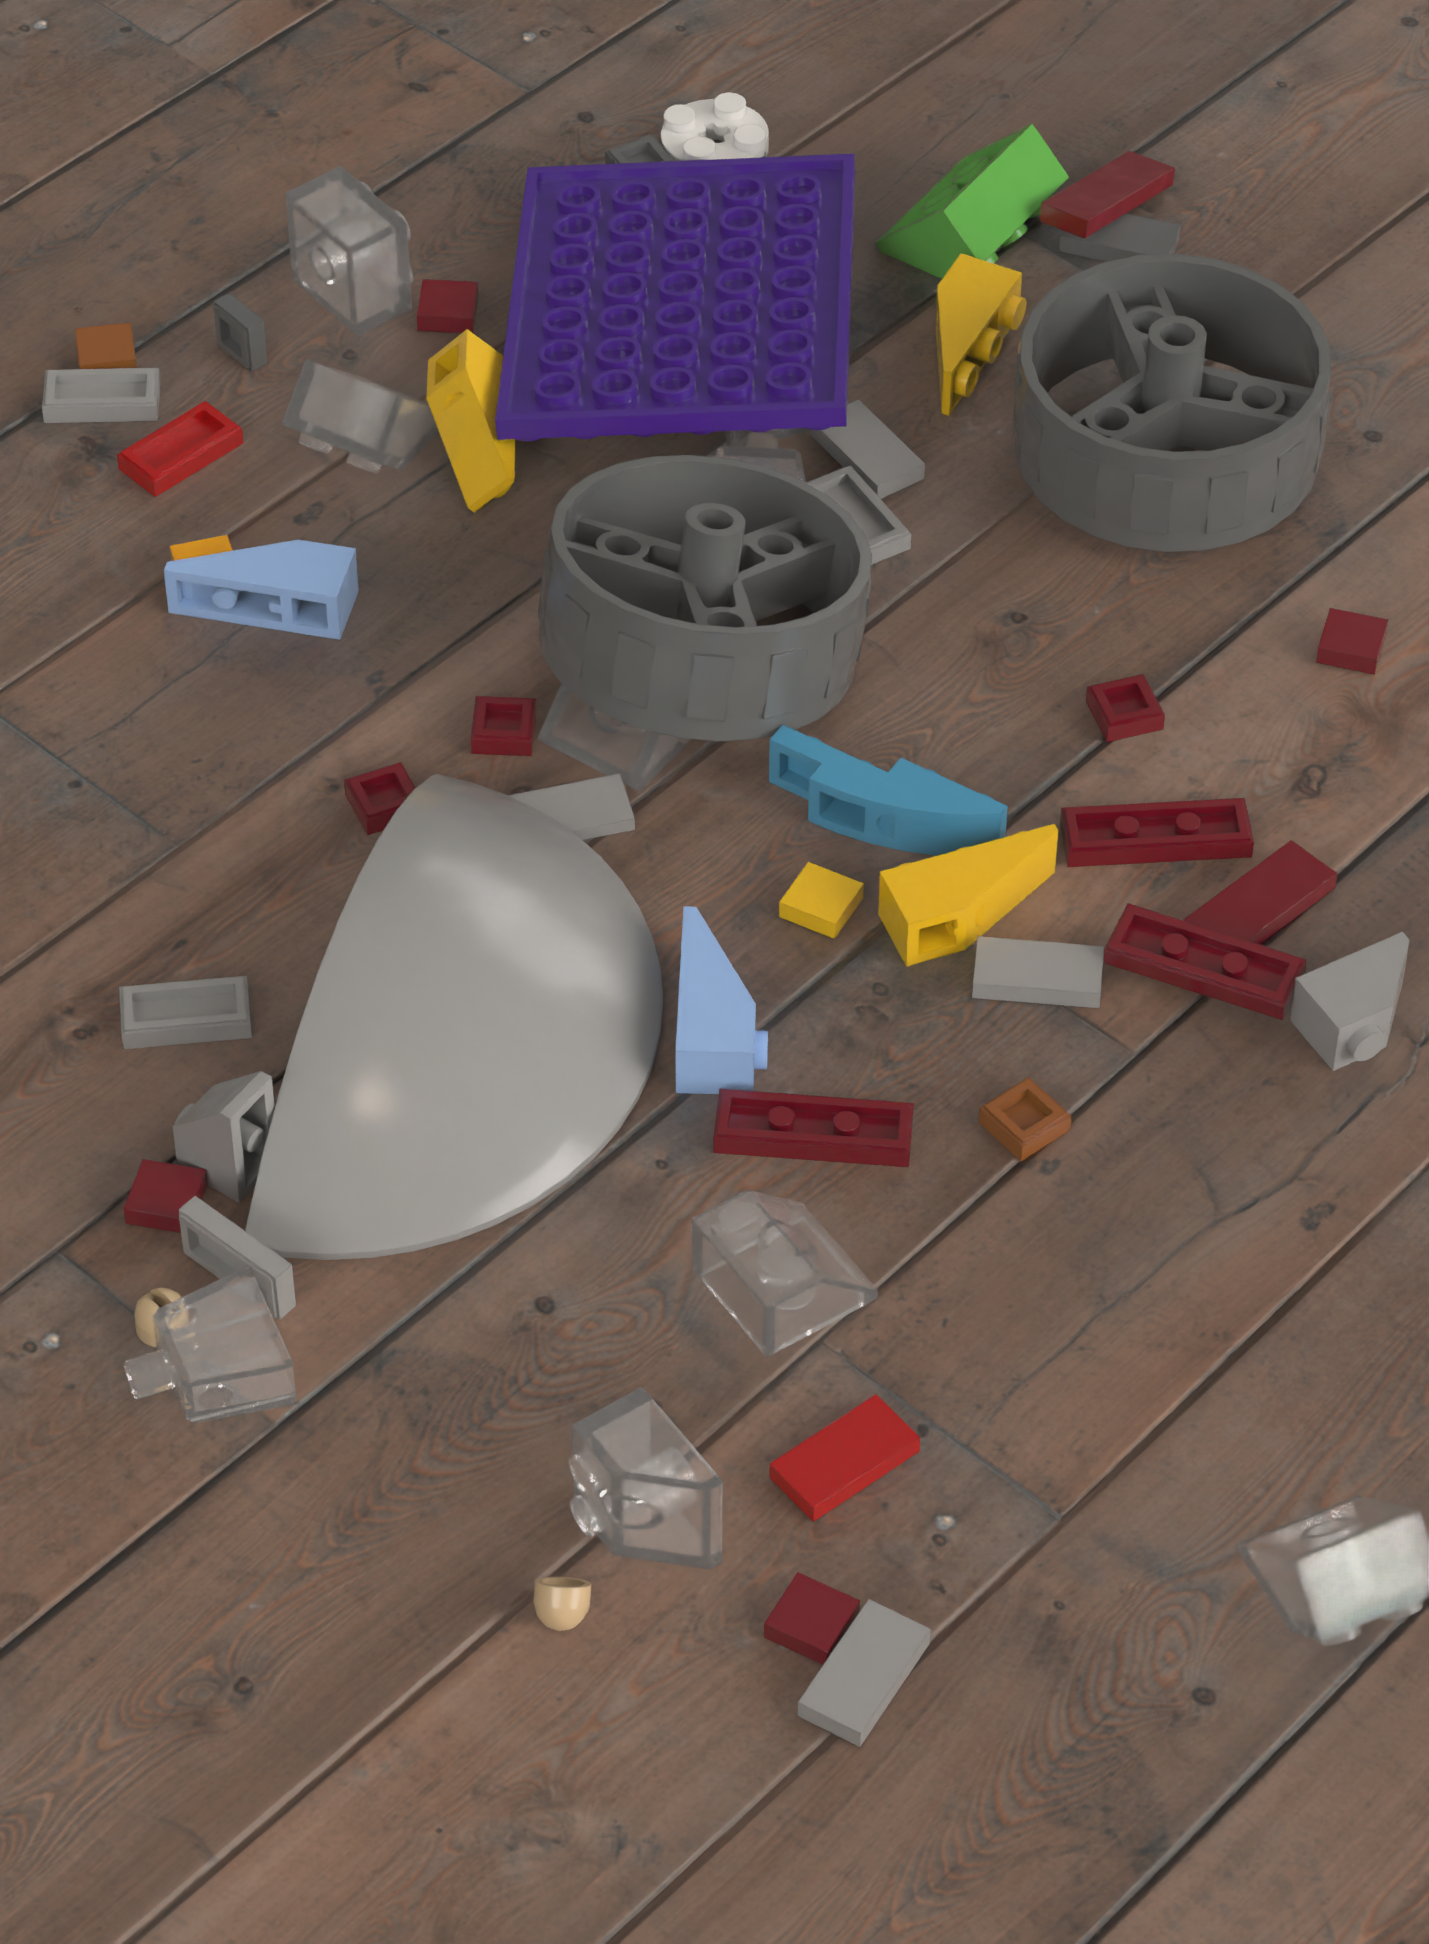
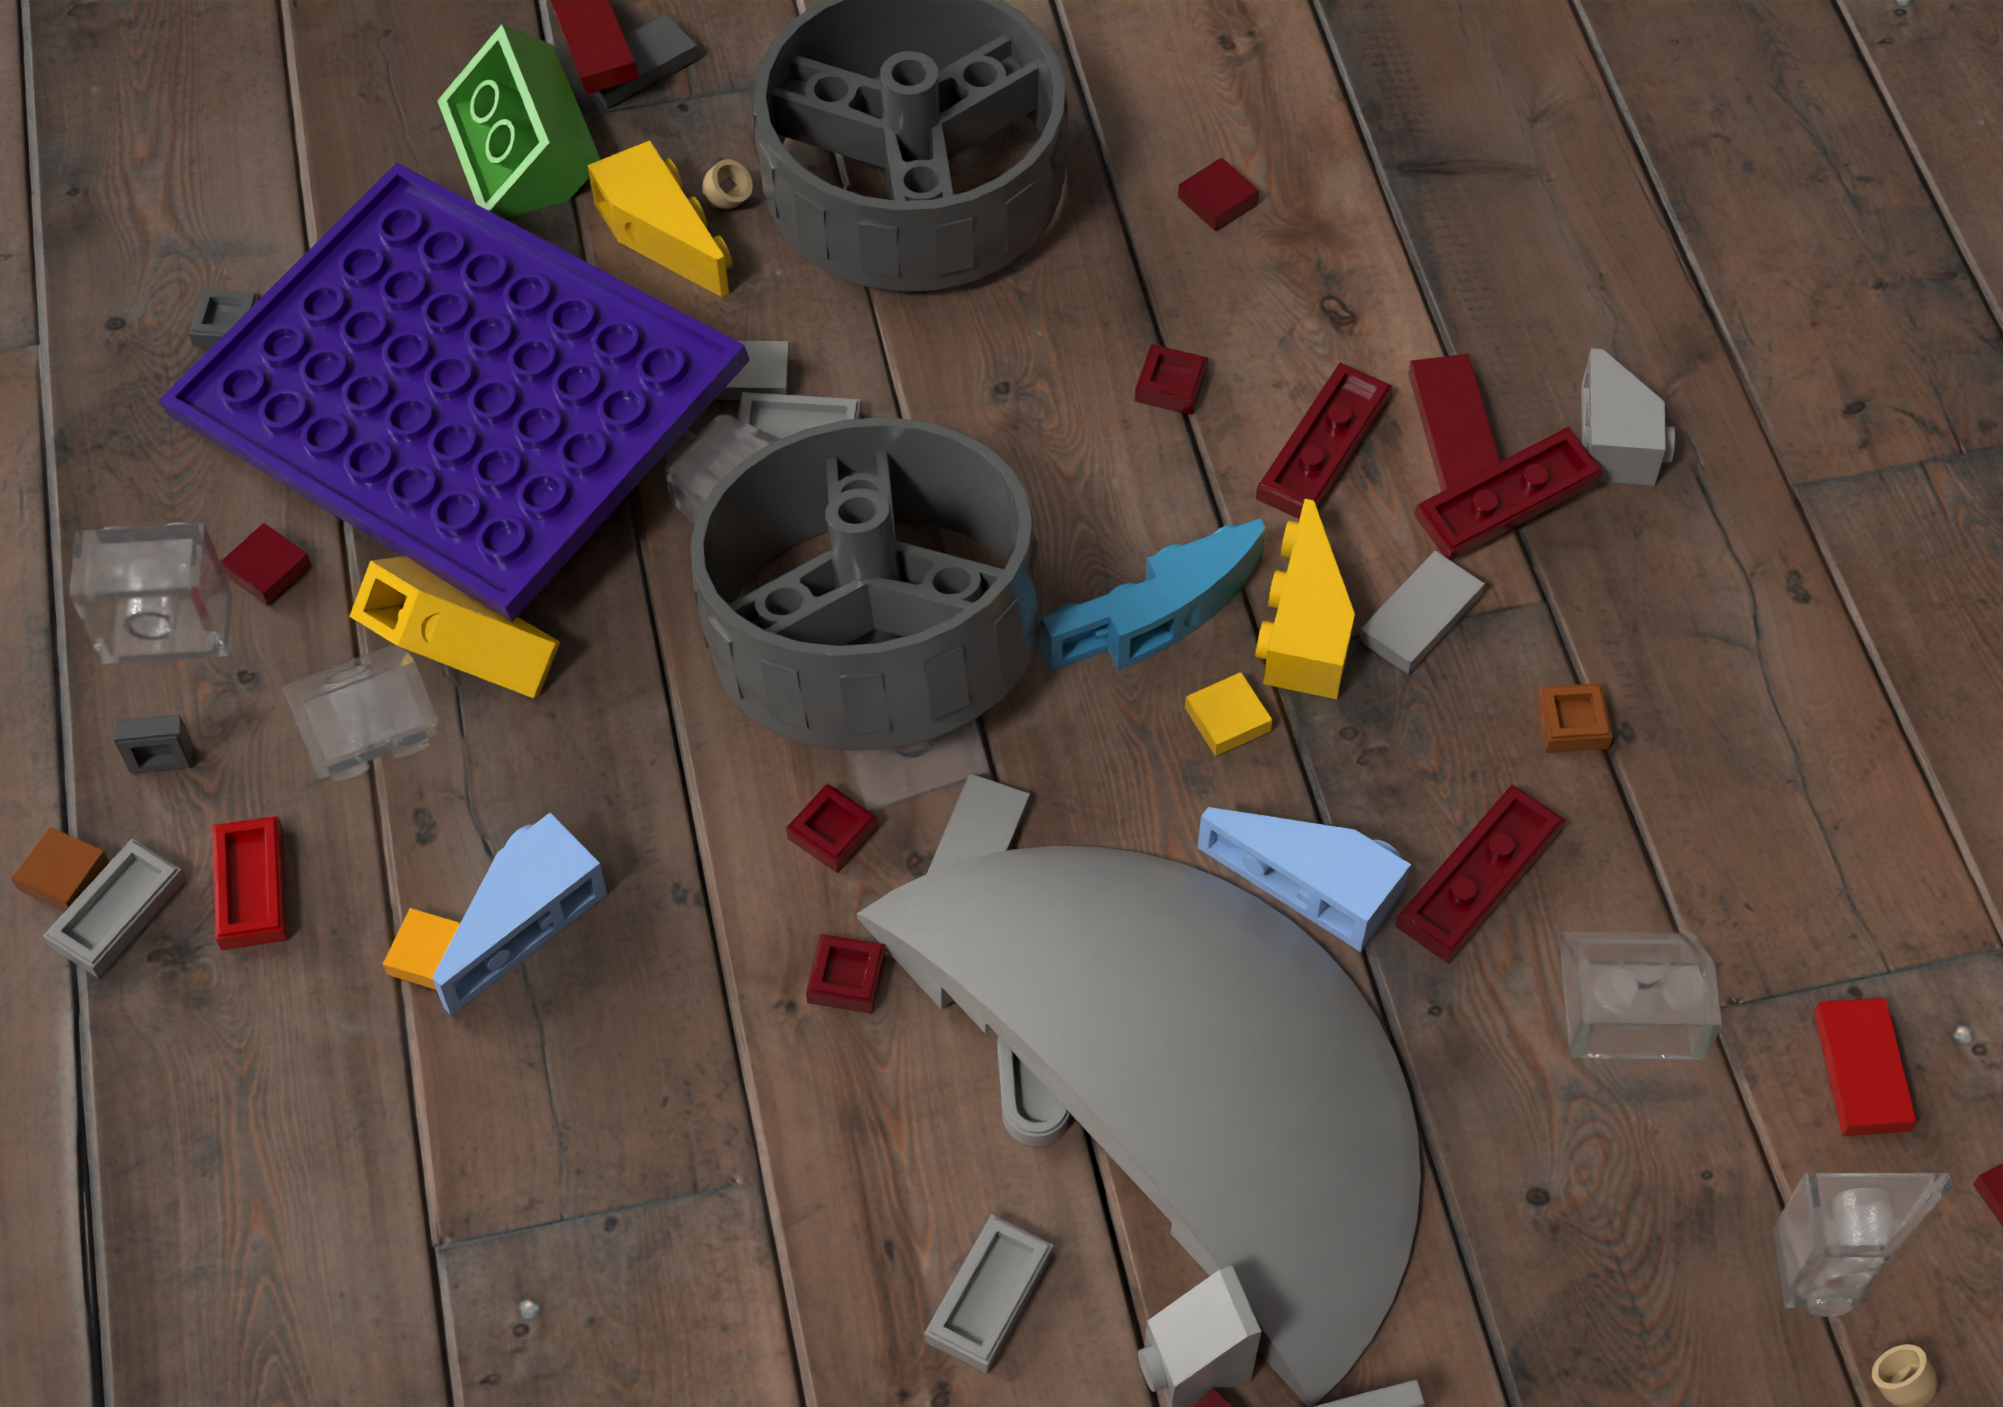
camera: 55 degrees left, 10 degrees up
(692, 128) = (244, 224): white plate -> none

